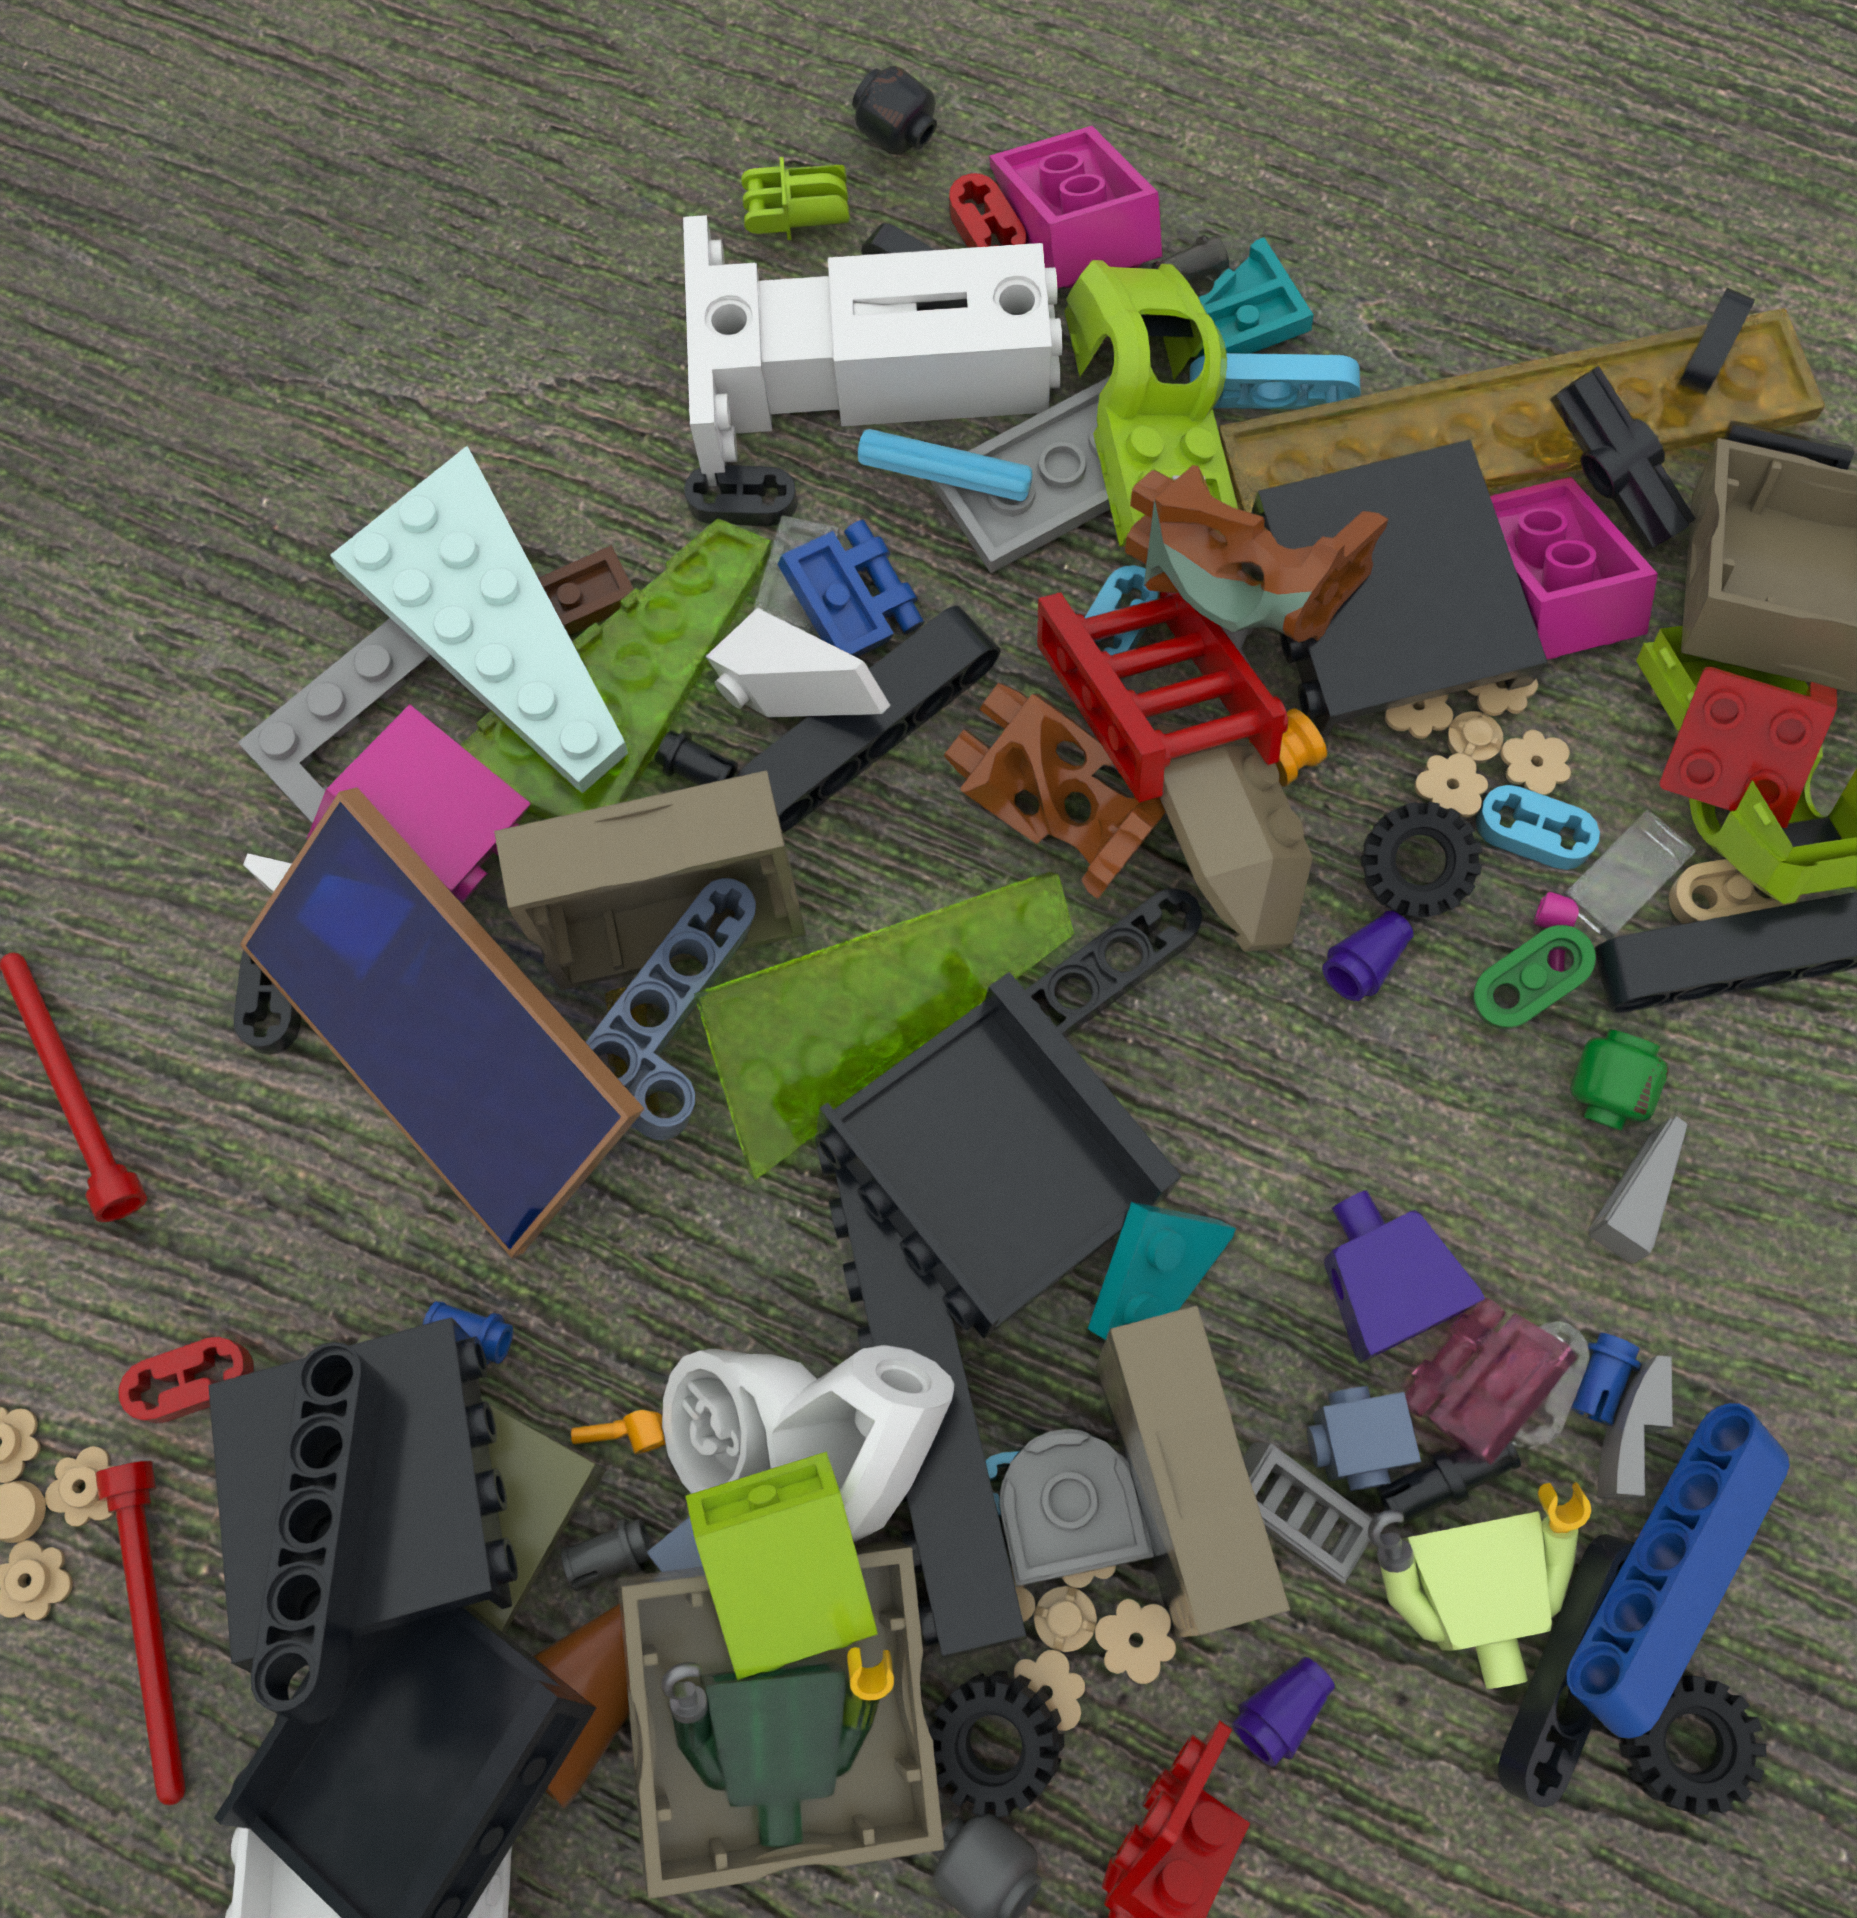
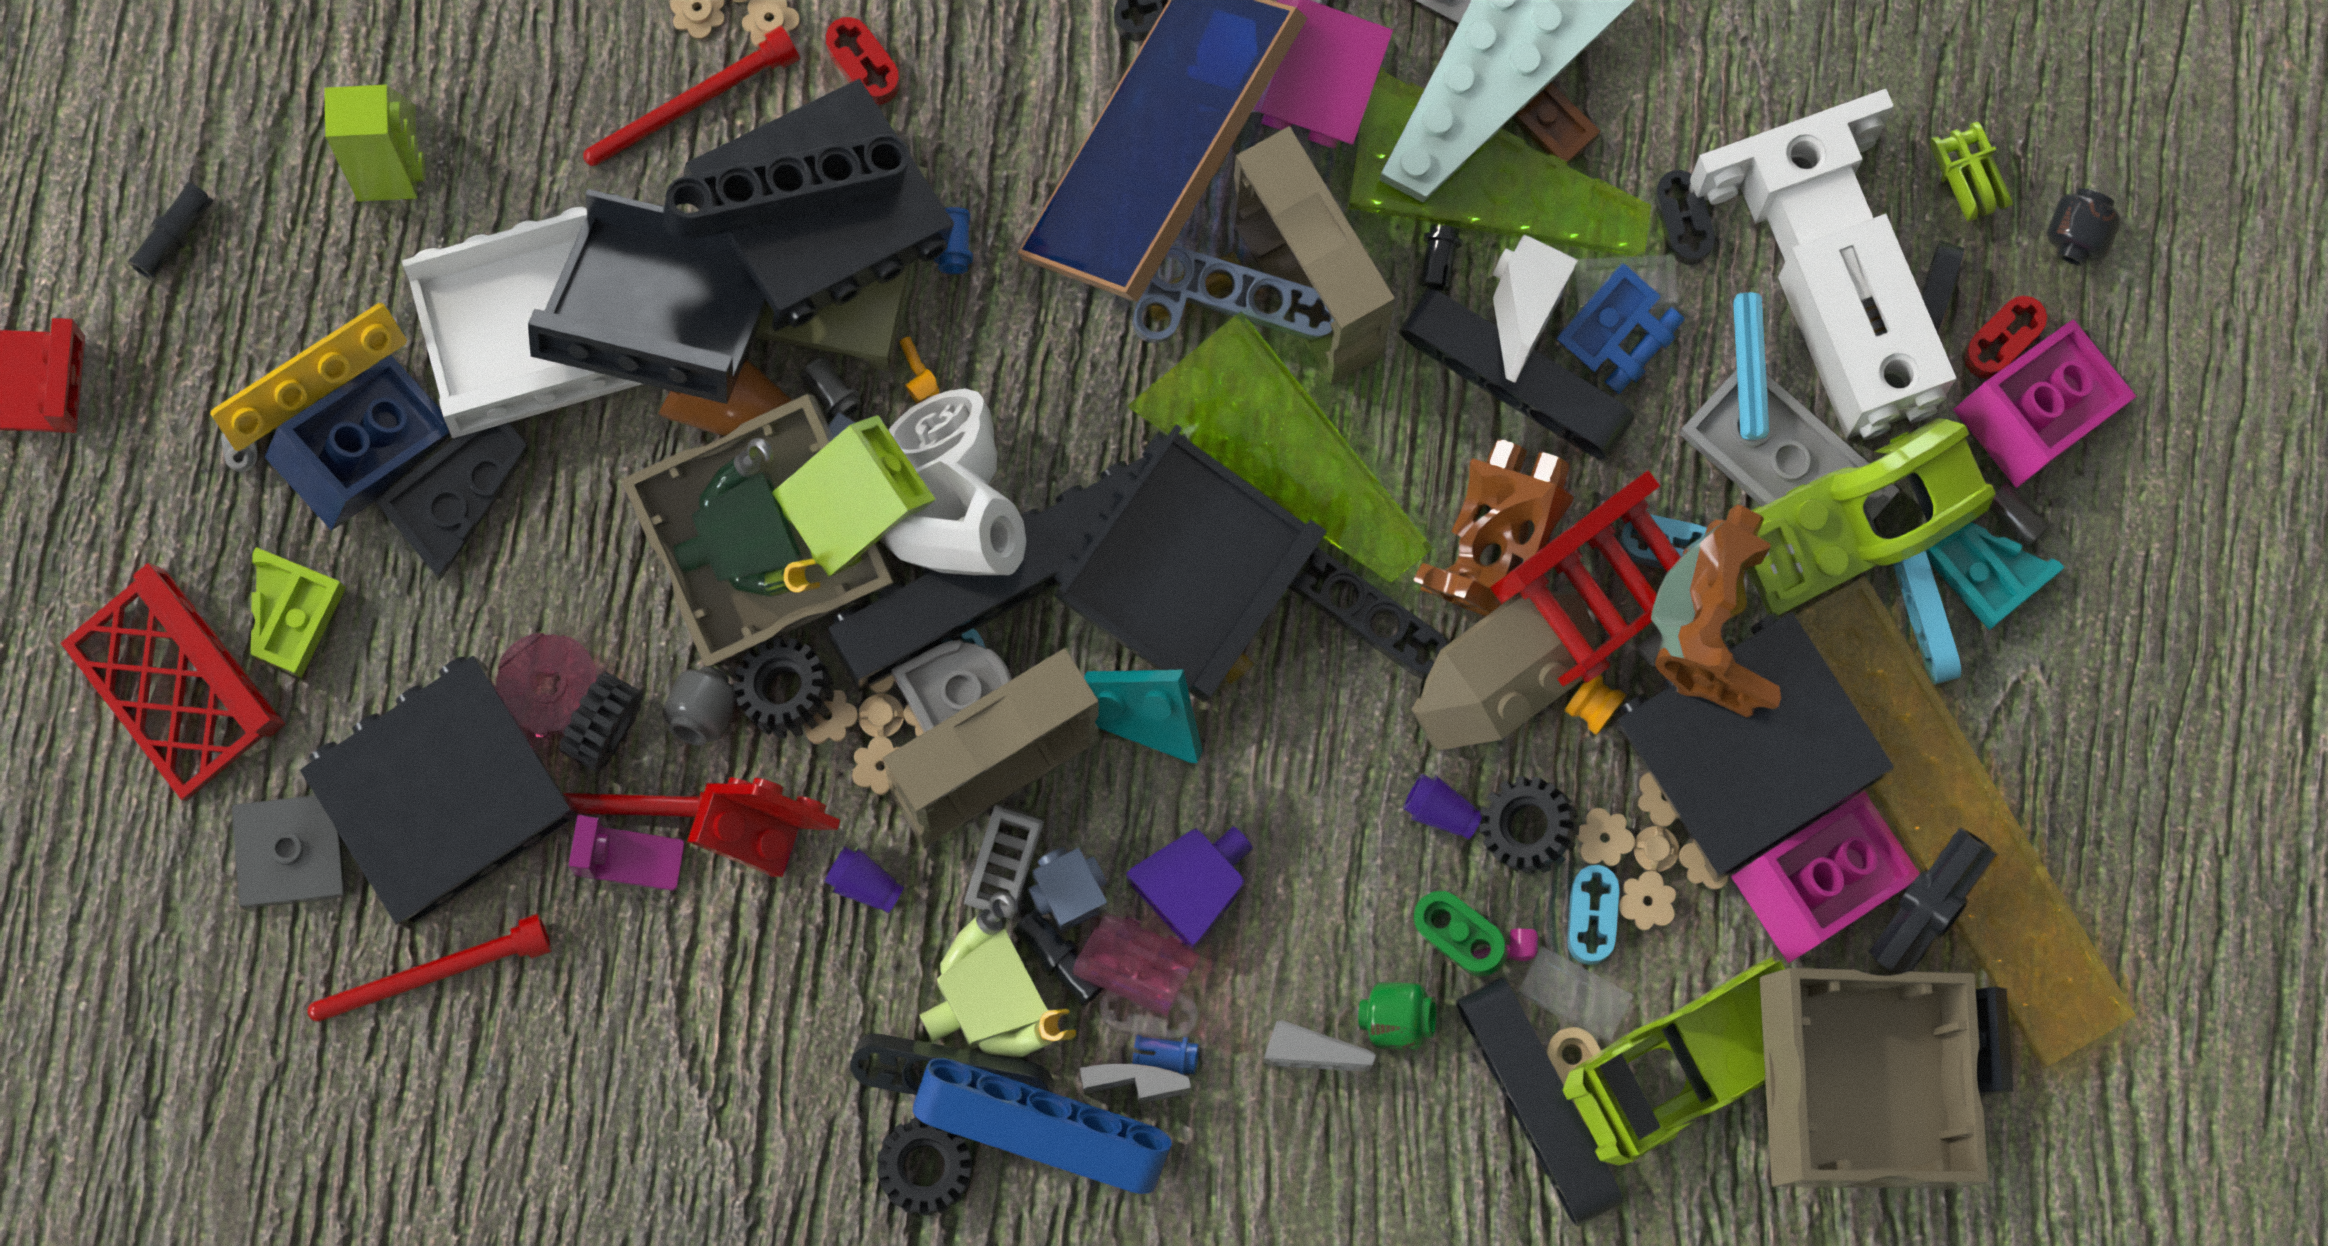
camera: 65 degrees right, 5 degrees up
(1716, 341) = (2069, 955): black beam -> none
(1748, 733) = (1687, 1042): red bracket -> none

